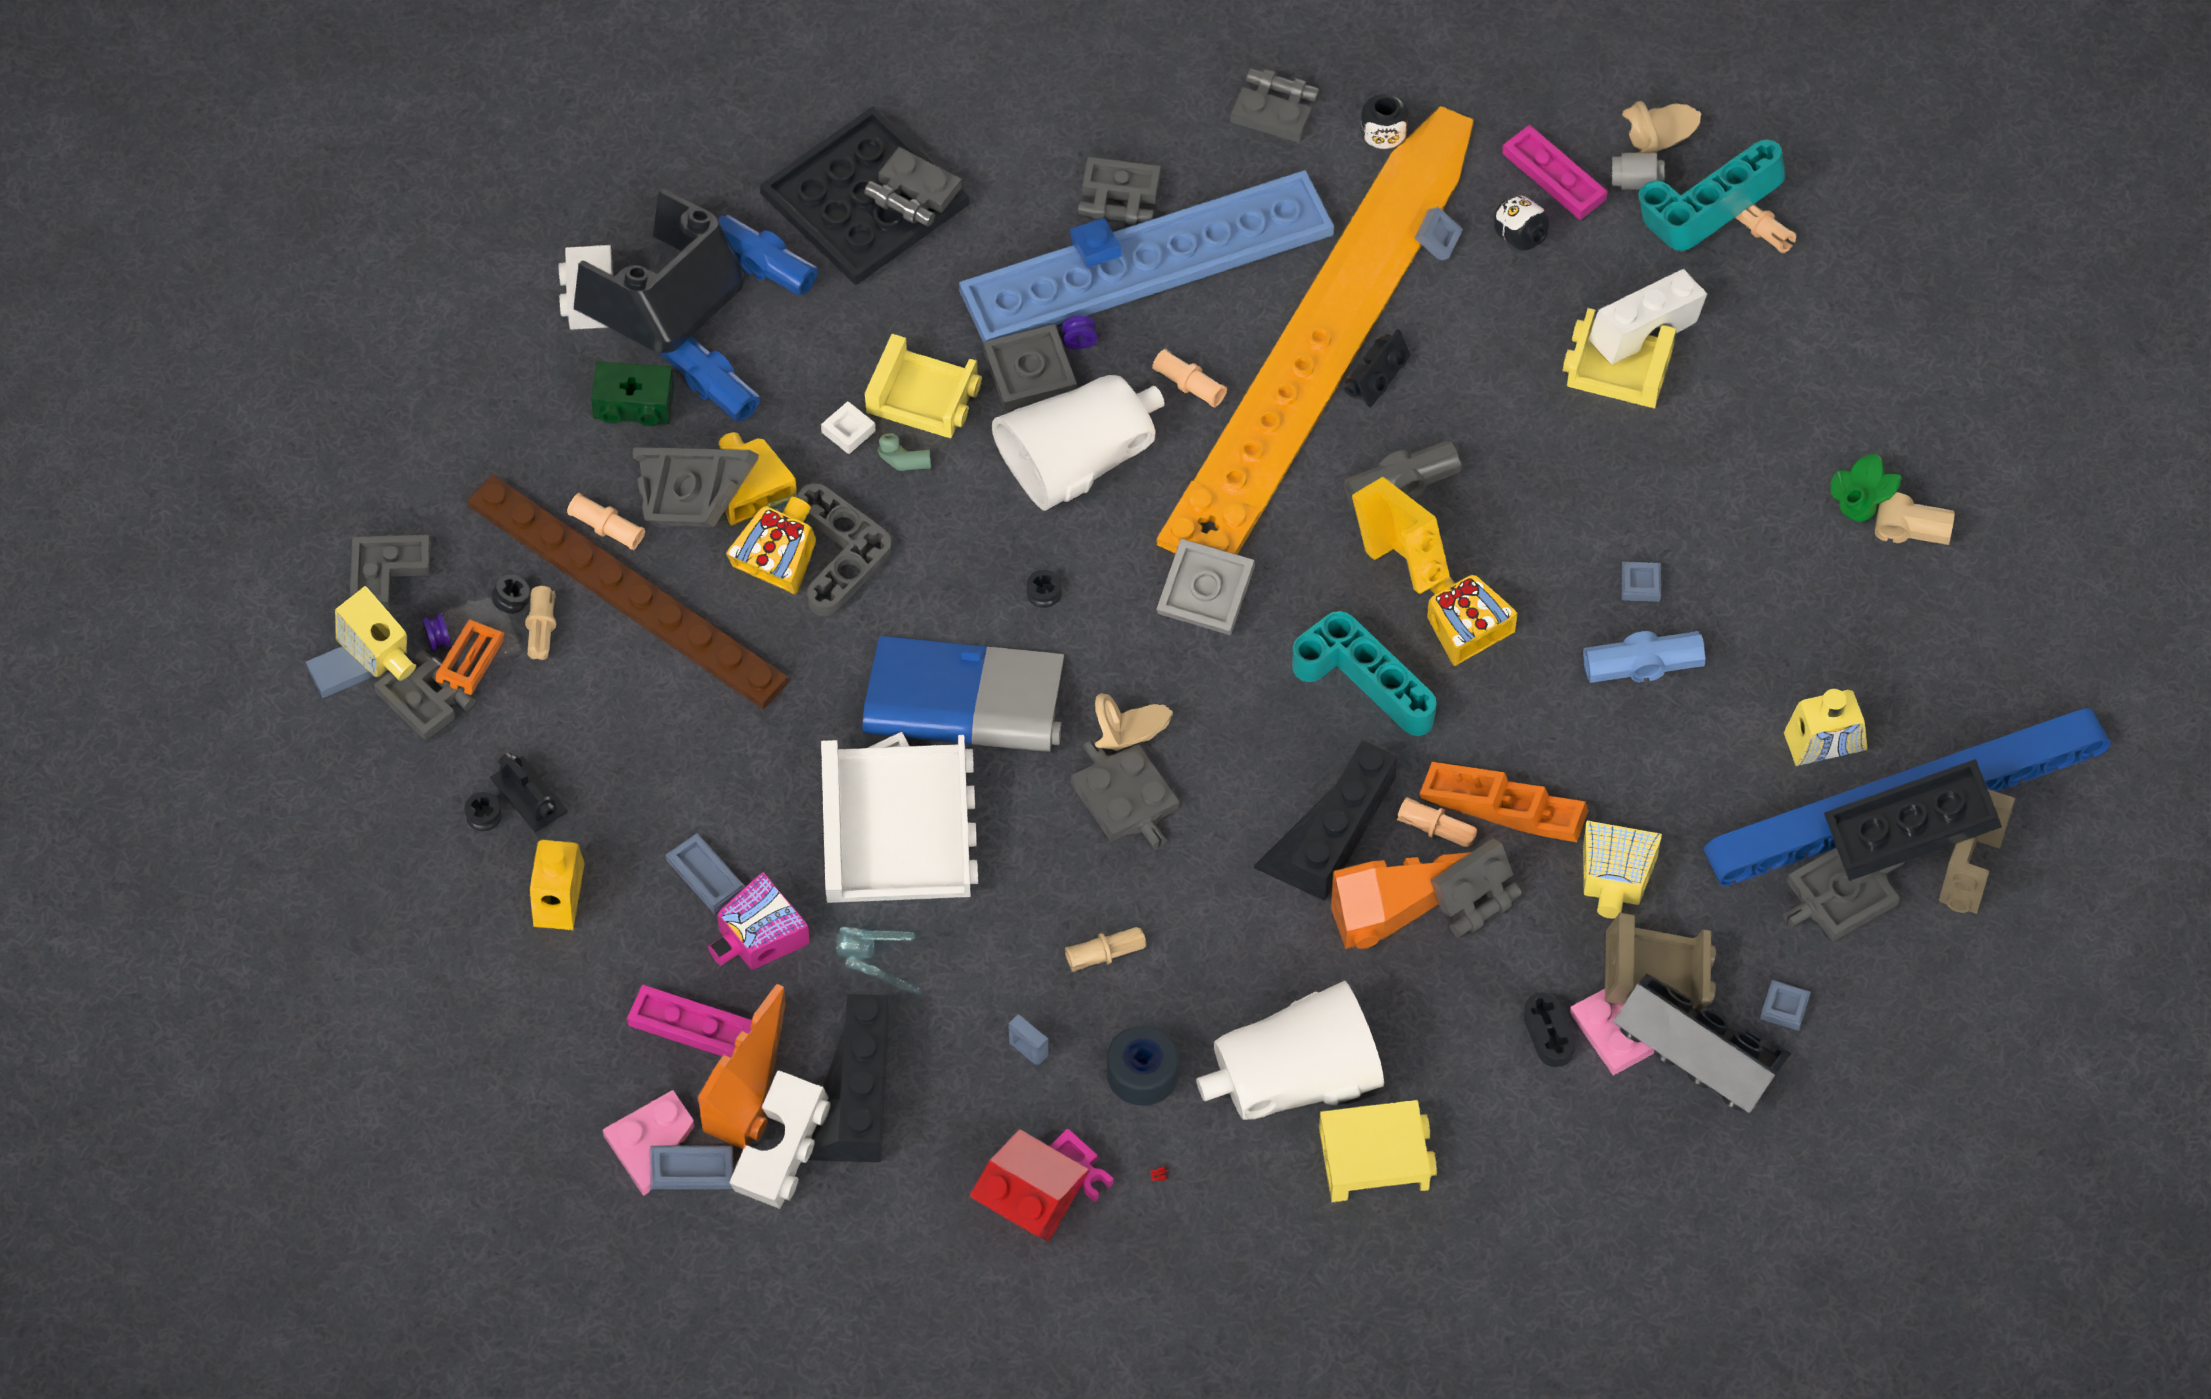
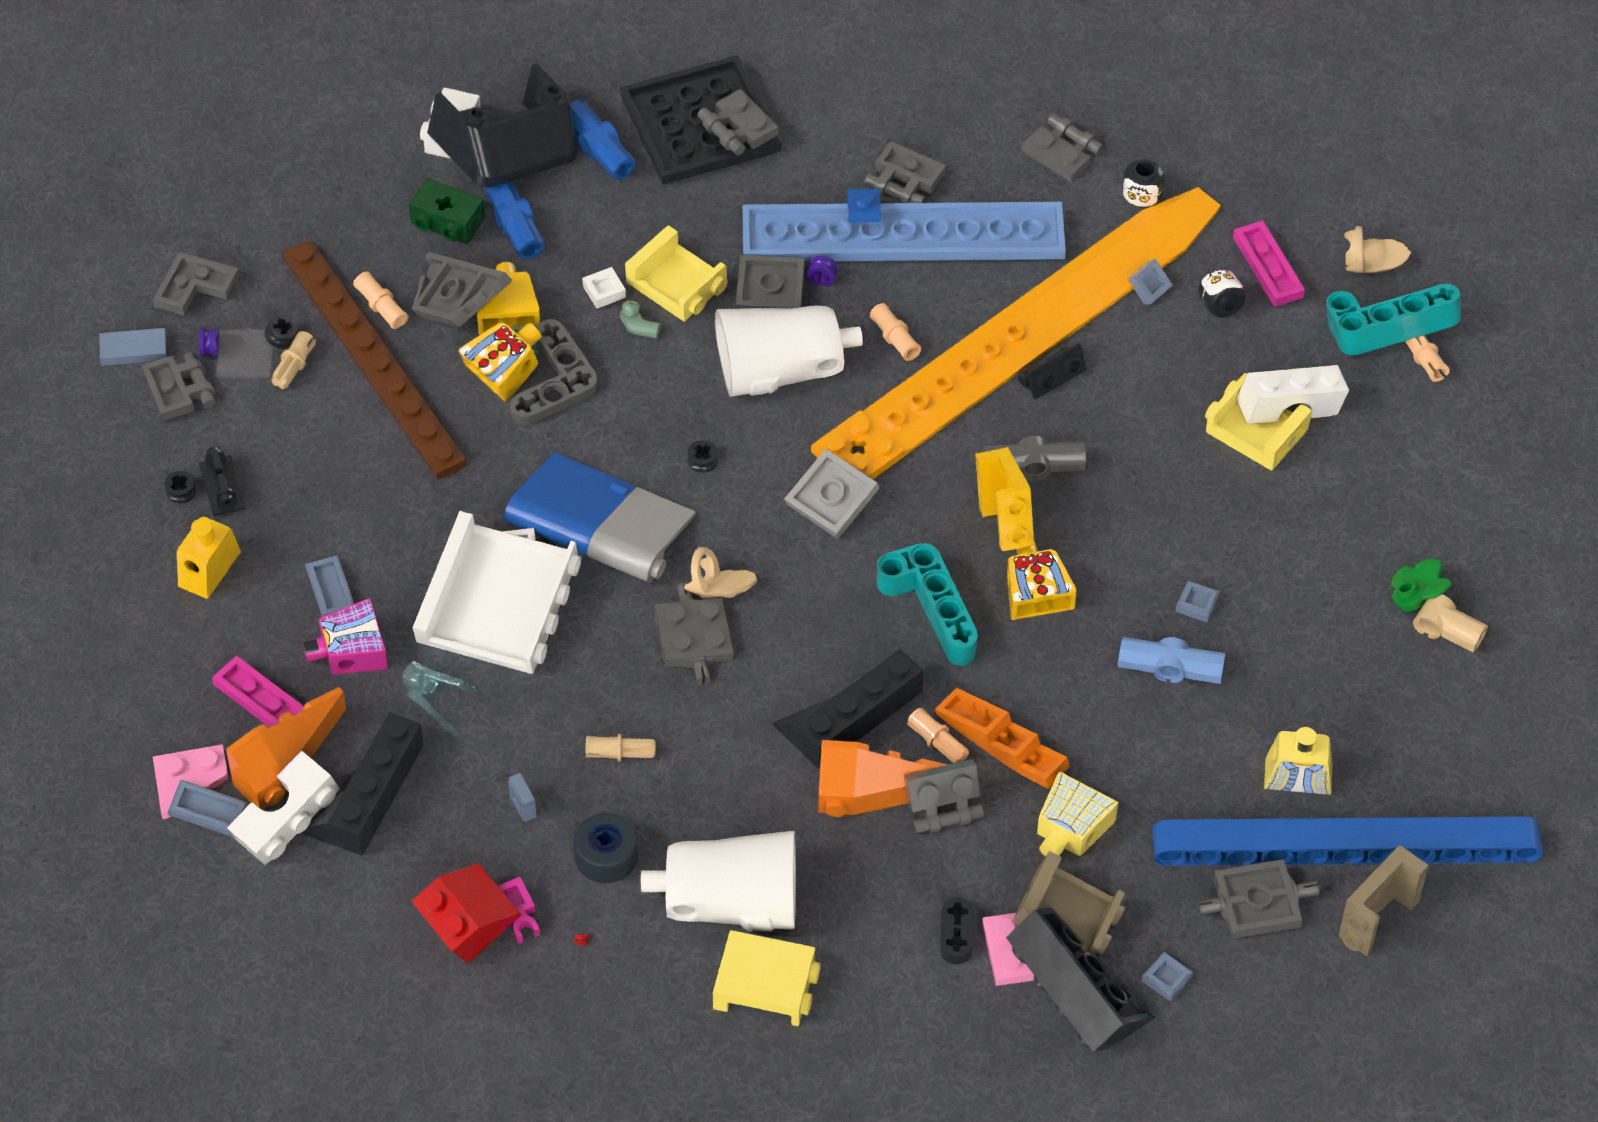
camera: 20 degrees right, 5 degrees down
(373, 635) = (152, 325): light yellow torso -> none
(459, 678) = (228, 371): orange tile -> none
(1636, 169) = (1337, 278): light grey brick -> none
(1912, 820) = (1333, 855): black tile -> none

